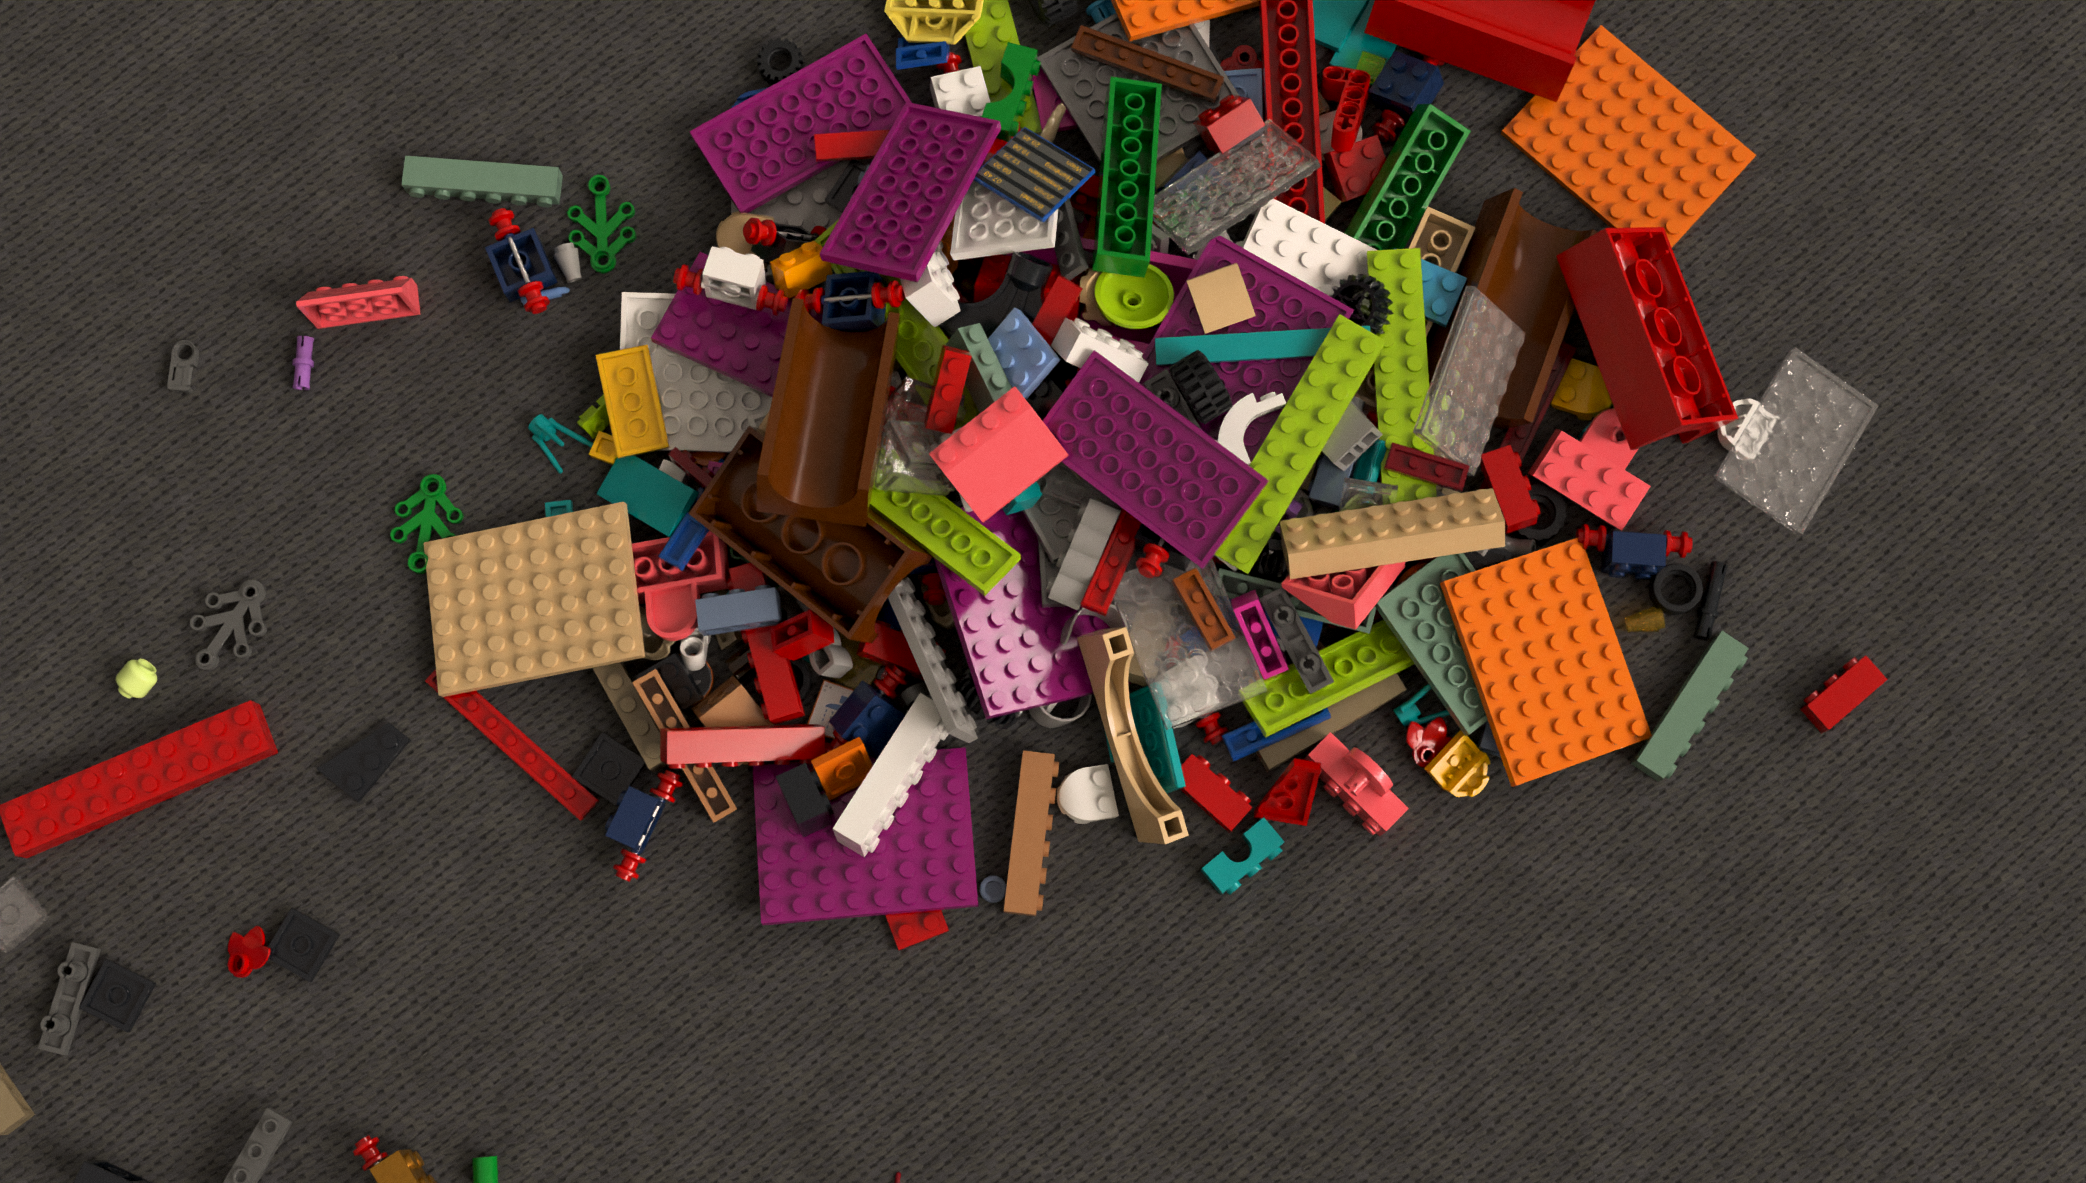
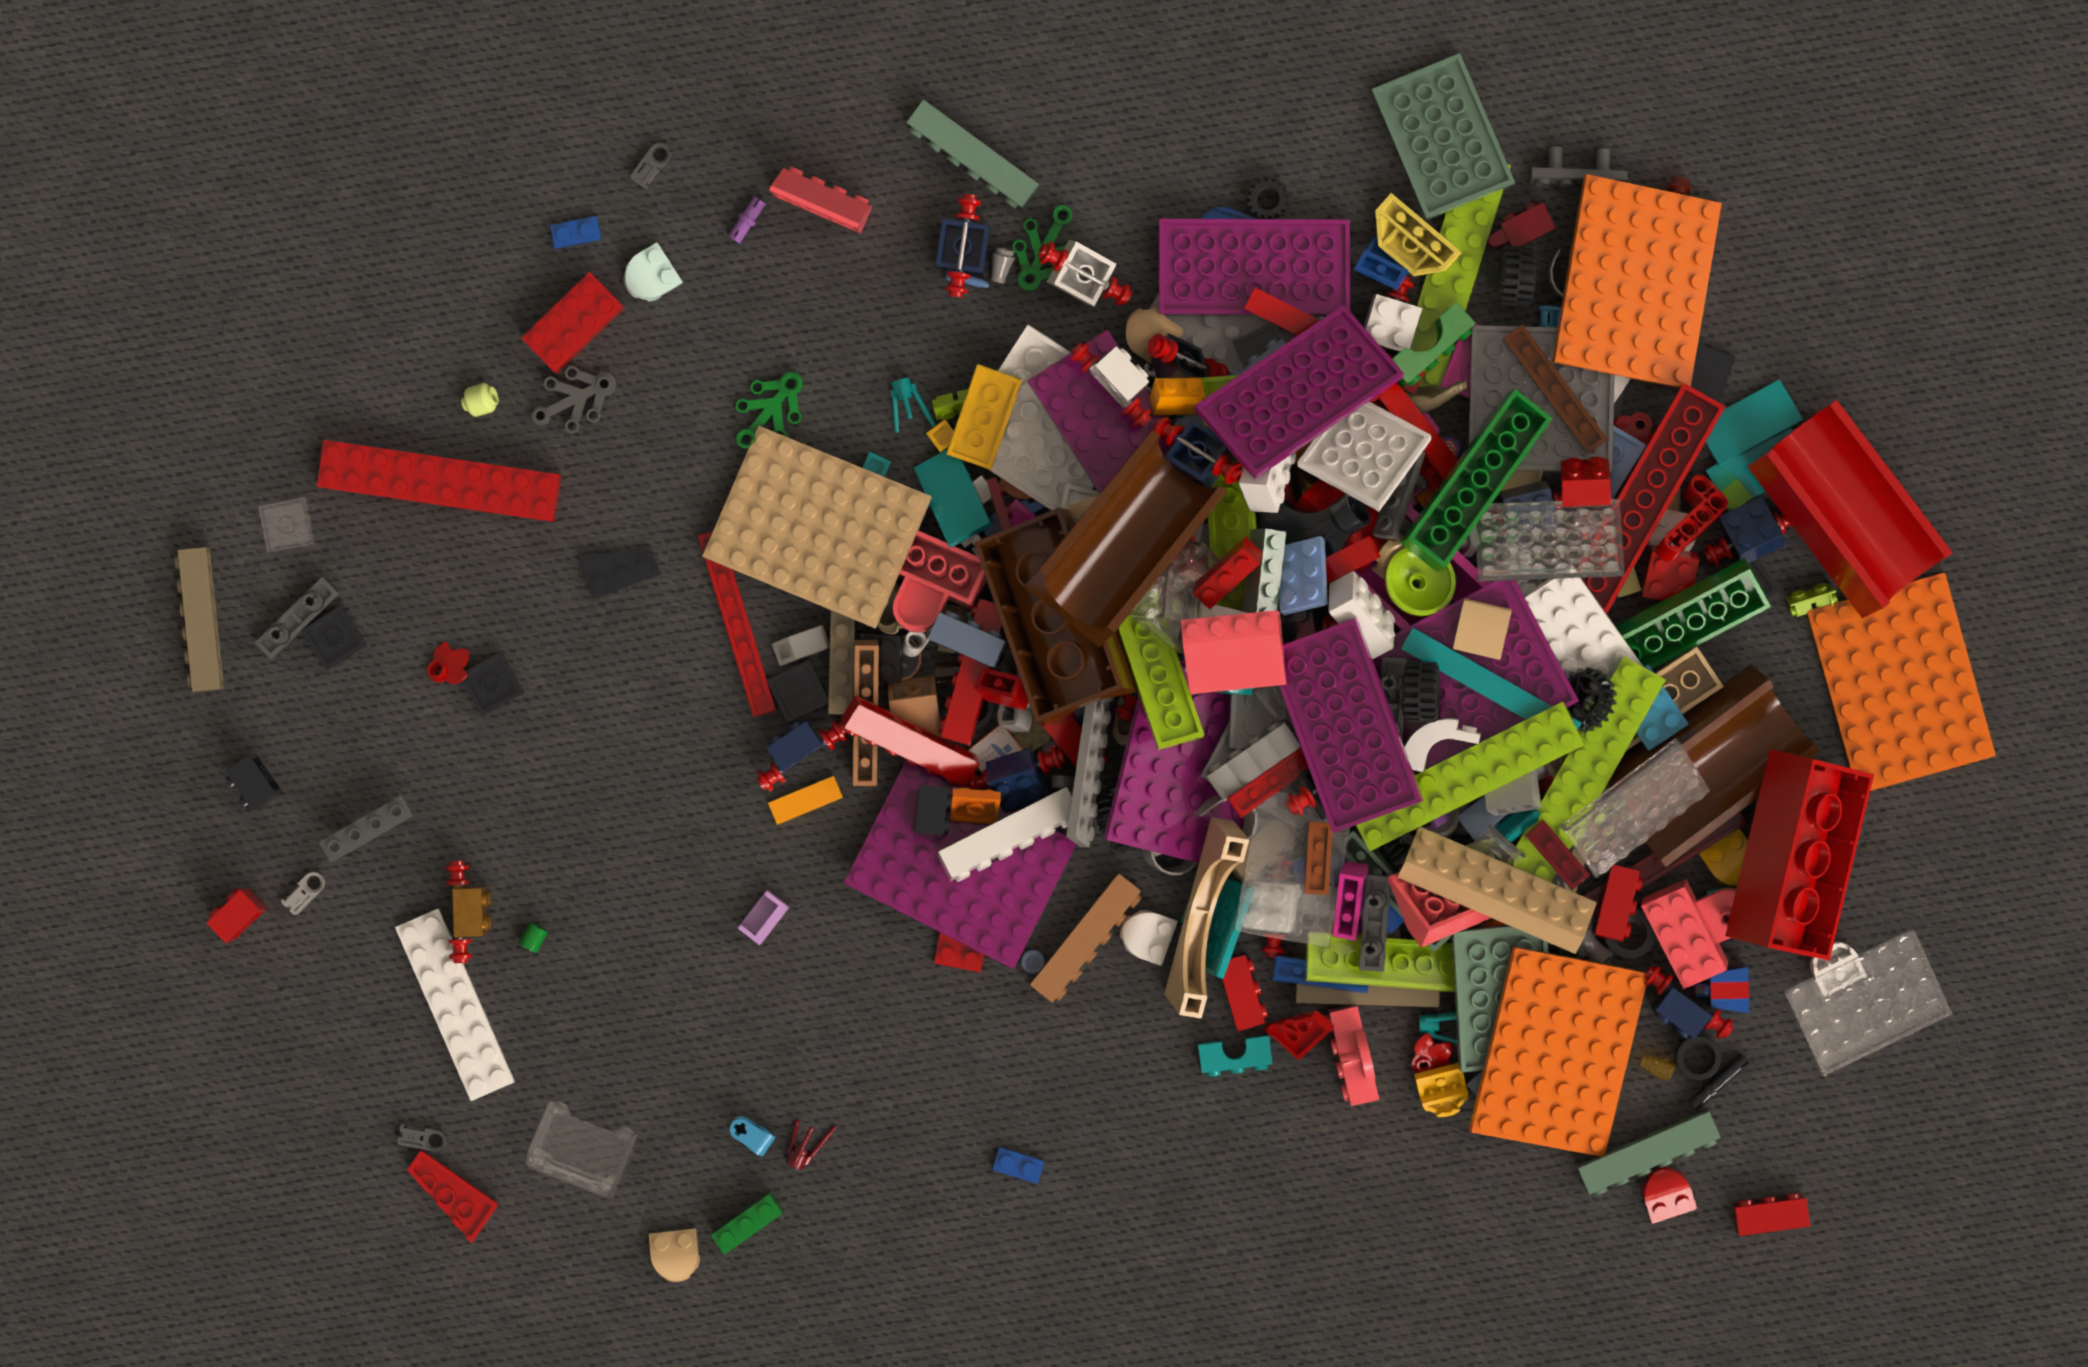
camera: 30 degrees right, 10 degrees up
(144, 470) = (575, 232): none -> blue plate
(187, 552) = (573, 322): none -> red brick
(238, 466) = (650, 274): none -> light aqua slope
(584, 722) = (801, 645): none -> light grey slope
(647, 221) = (1083, 273): none -> white brick
(678, 869) = (805, 800): none -> light orange tile
(683, 542) = (956, 557): blue tile -> none
(704, 1007) = (763, 917): none -> lavender panel
(1034, 174) = (1401, 438): piece -> none
(1101, 1097) = (1018, 1165): none -> blue plate
(1492, 125) = (1801, 600): none -> lime hinge
(1661, 510) = (1727, 990): none -> torso
(1734, 736) = (1667, 1194): none -> slope

